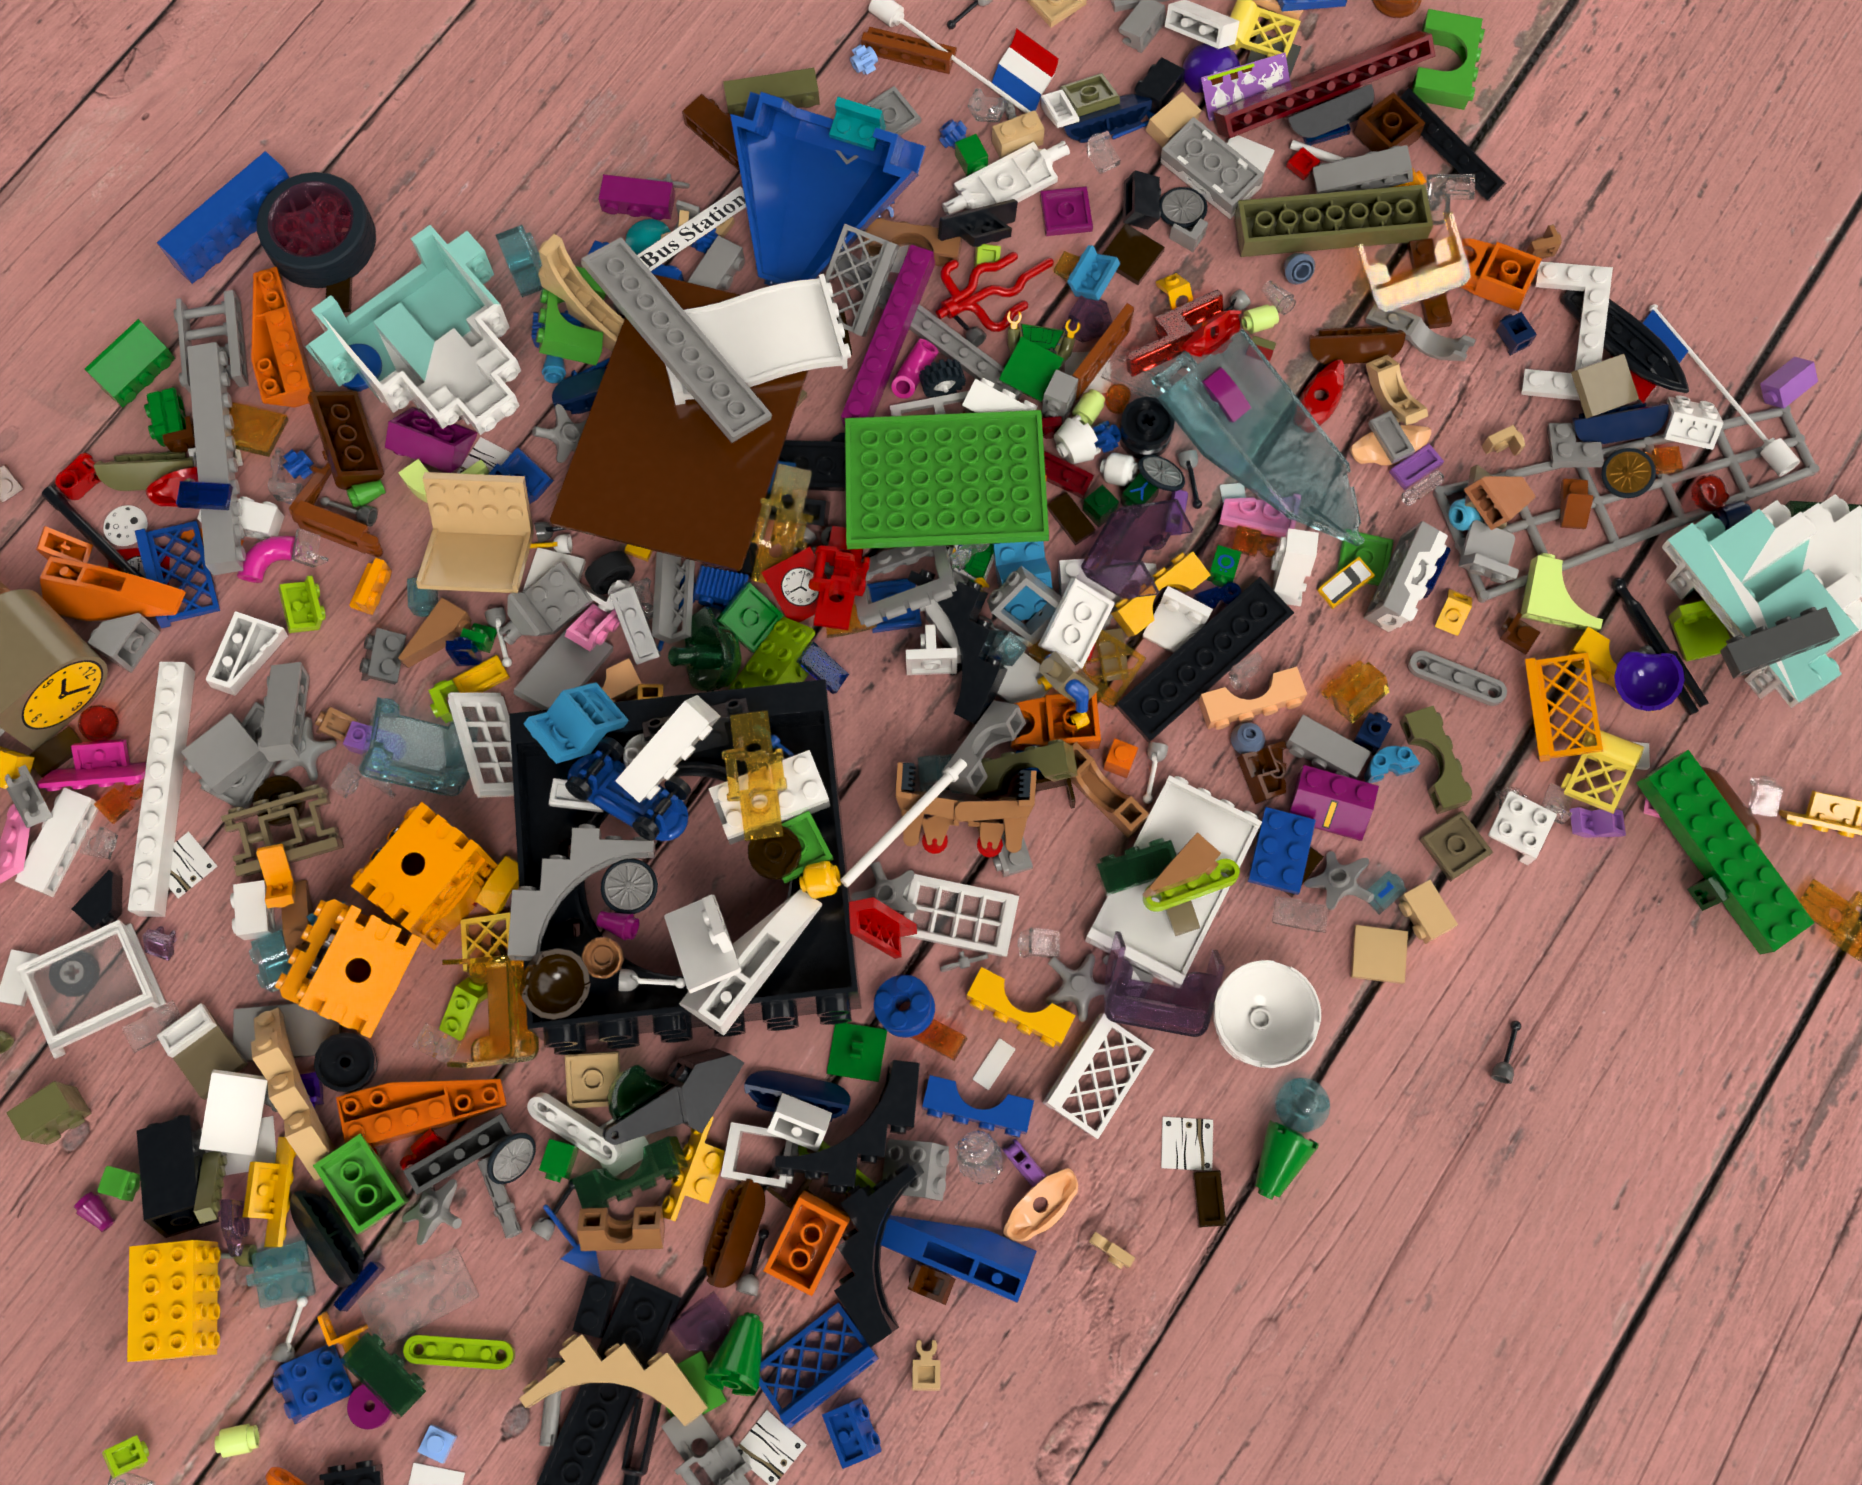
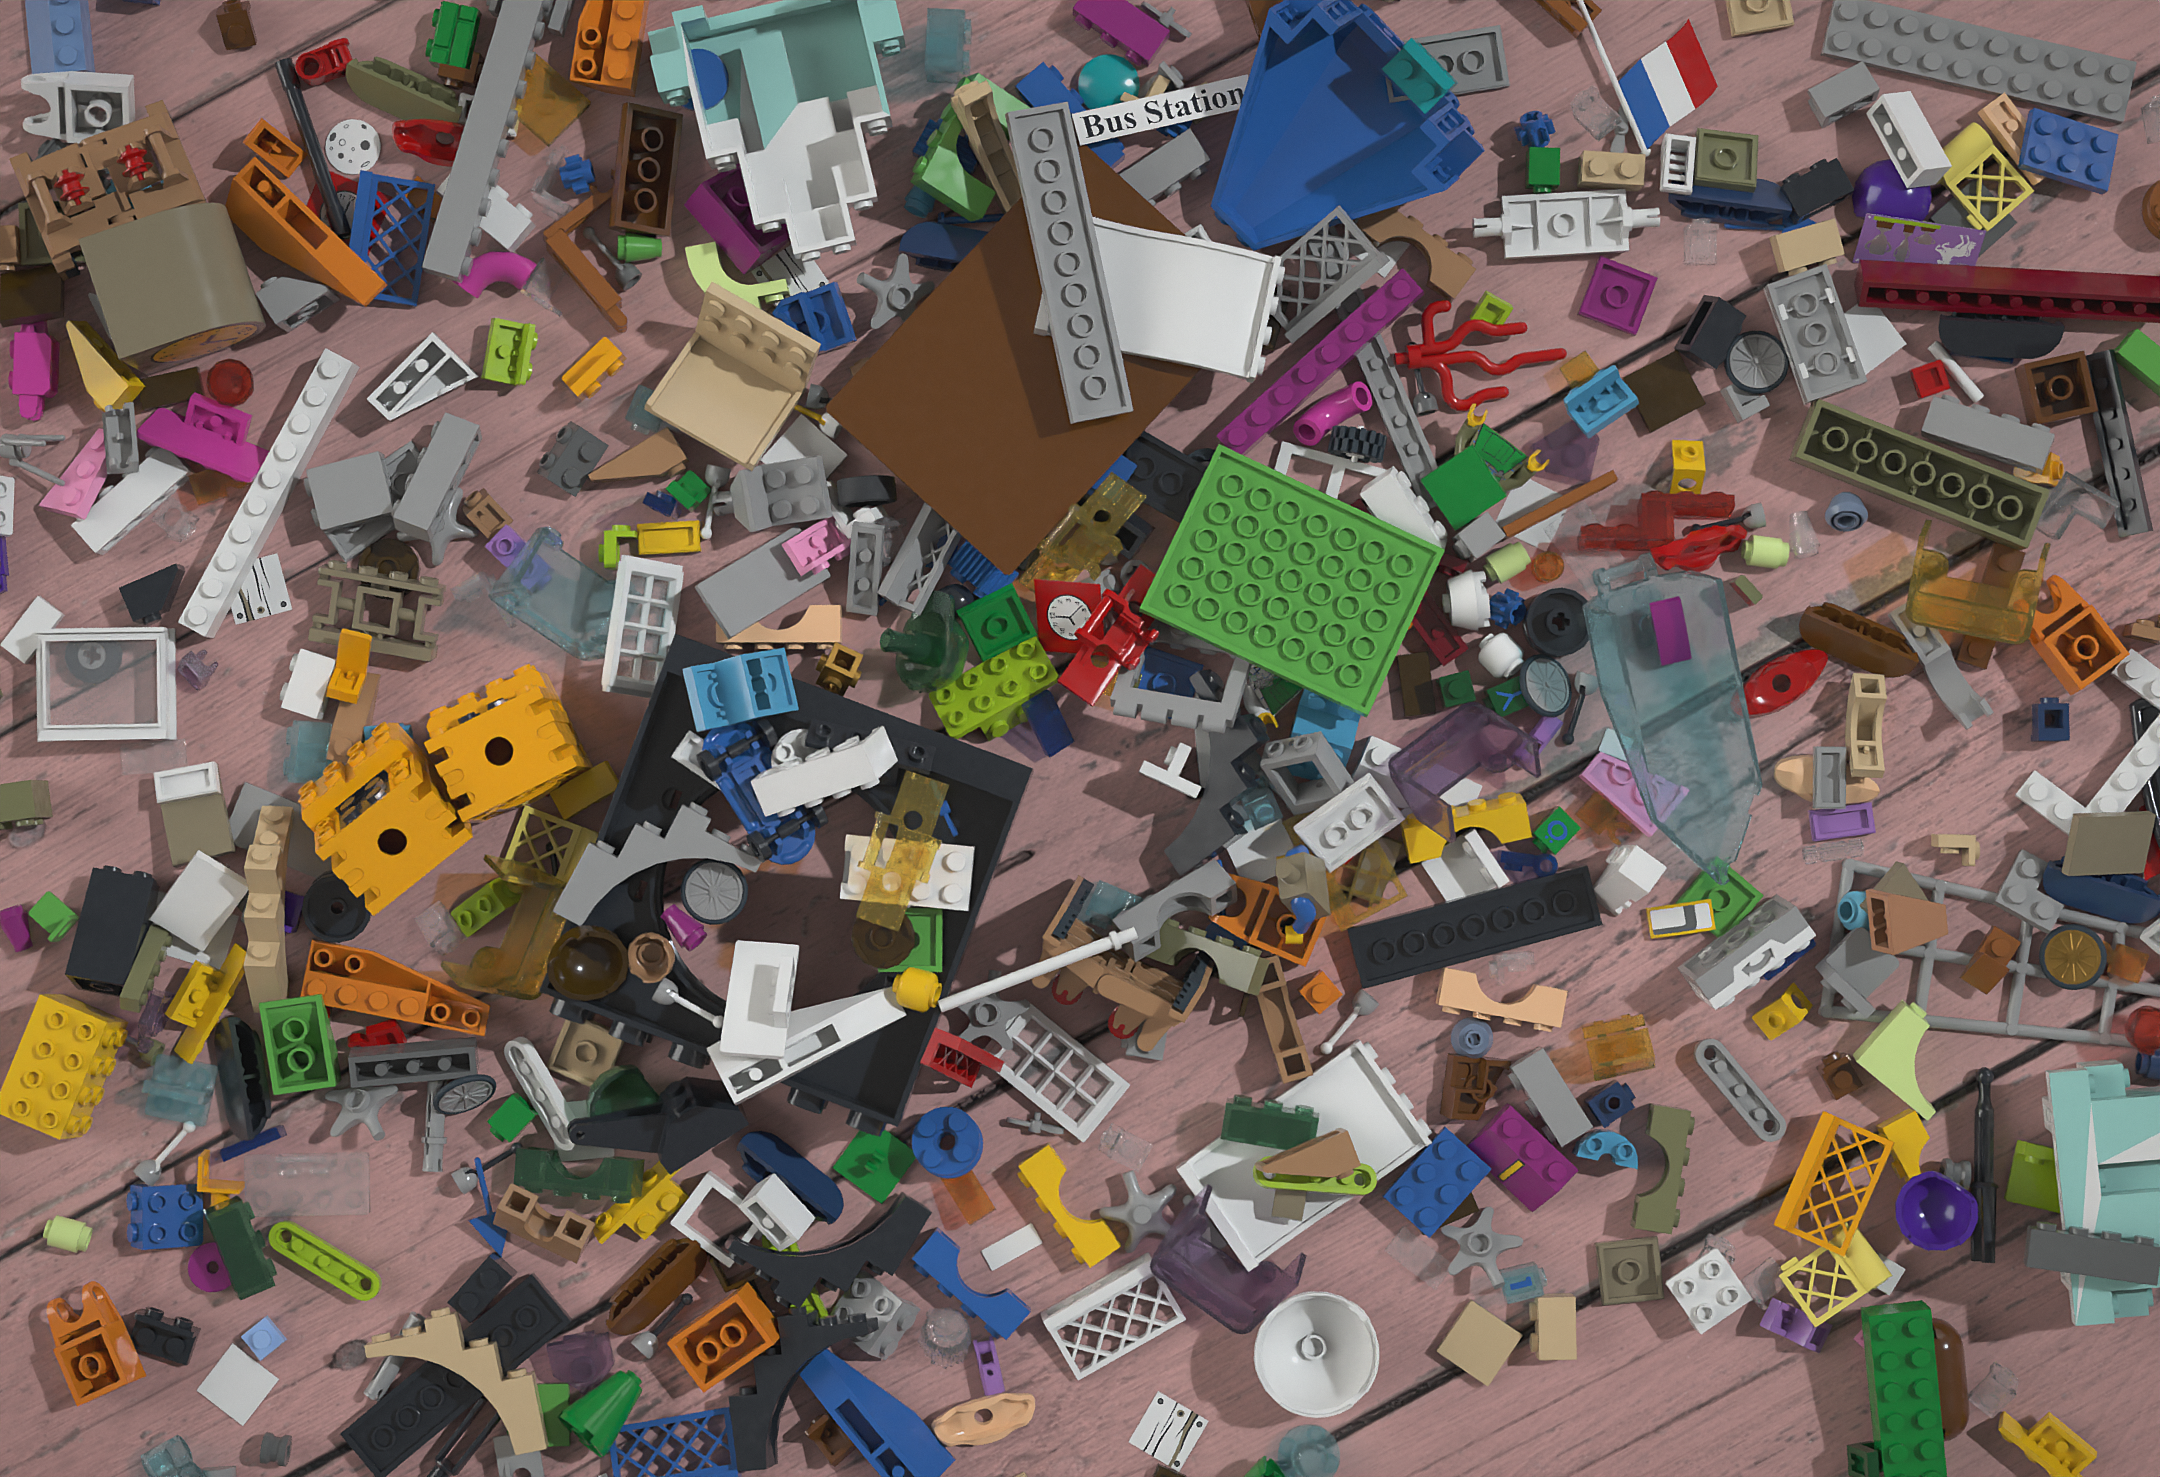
camera: 25 degrees right, 15 degrees up
(204, 495) = (455, 180): clear blue tile -> none
(980, 224) = (1502, 276): black bracket -> none

